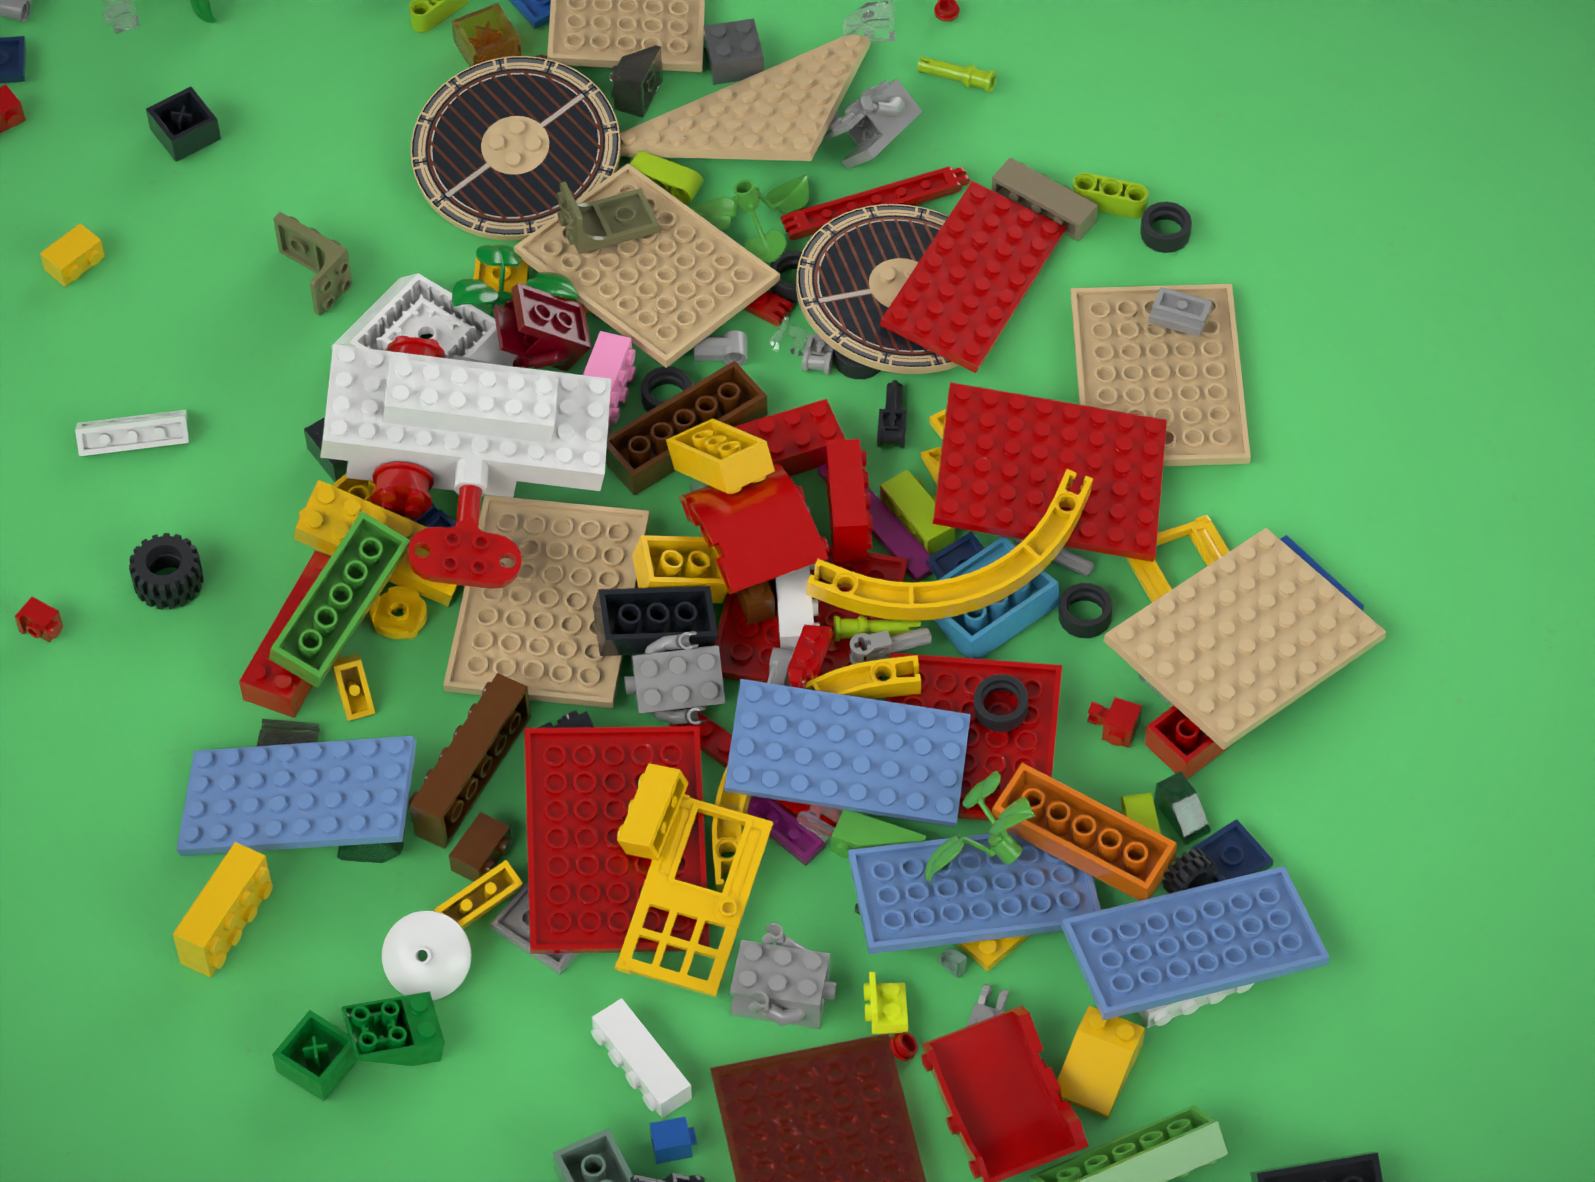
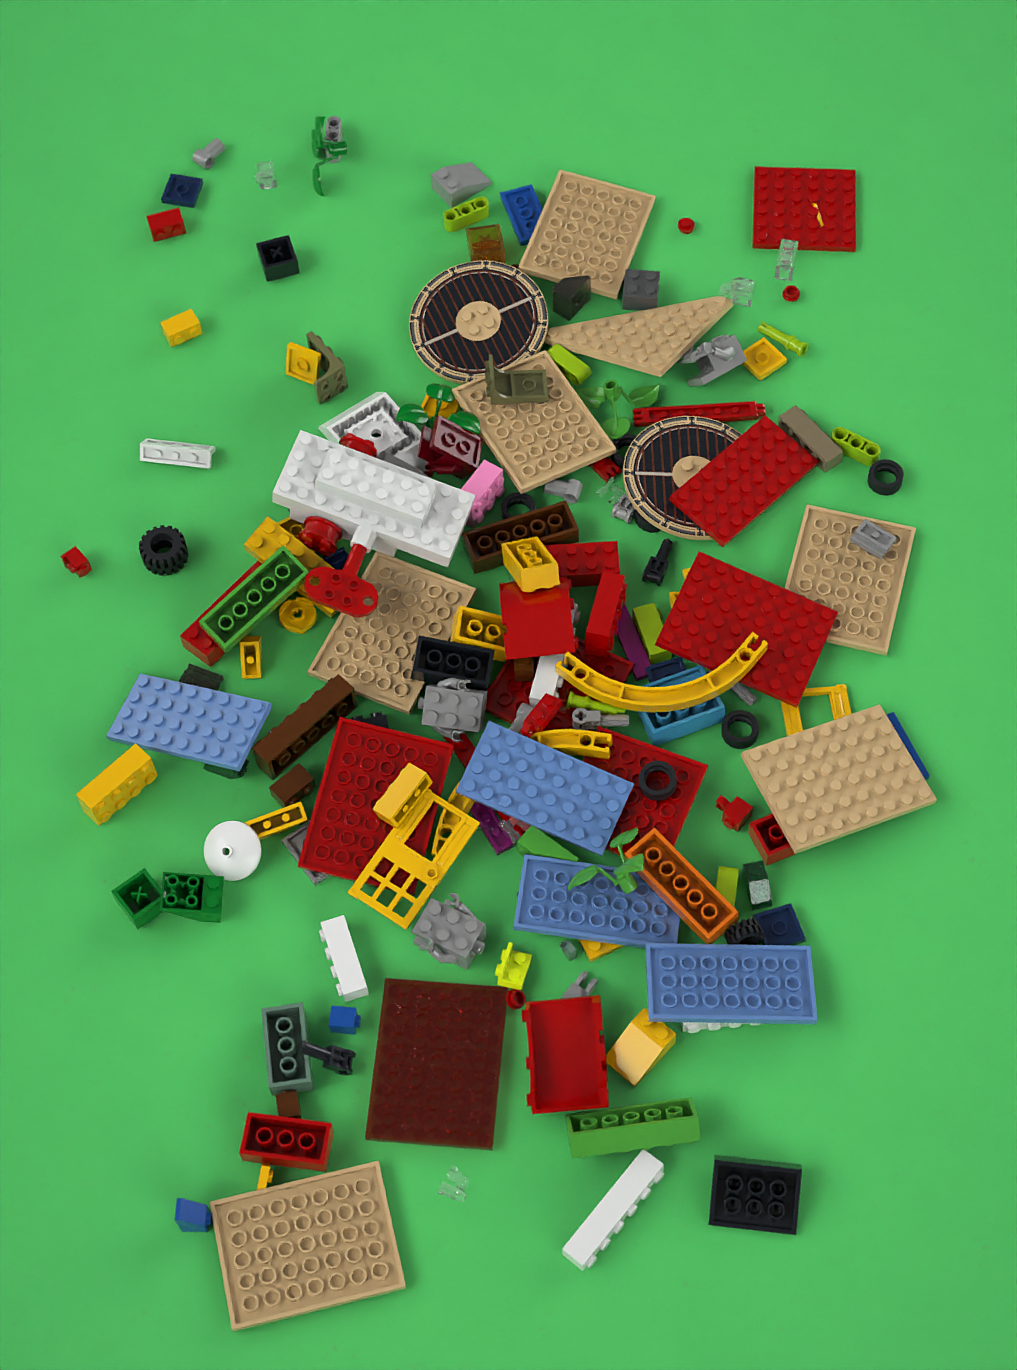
camera: 20 degrees right, 5 degrees up
(278, 262) = (302, 363): none -> yellow plate
(941, 107) = (763, 359): none -> yellow plate

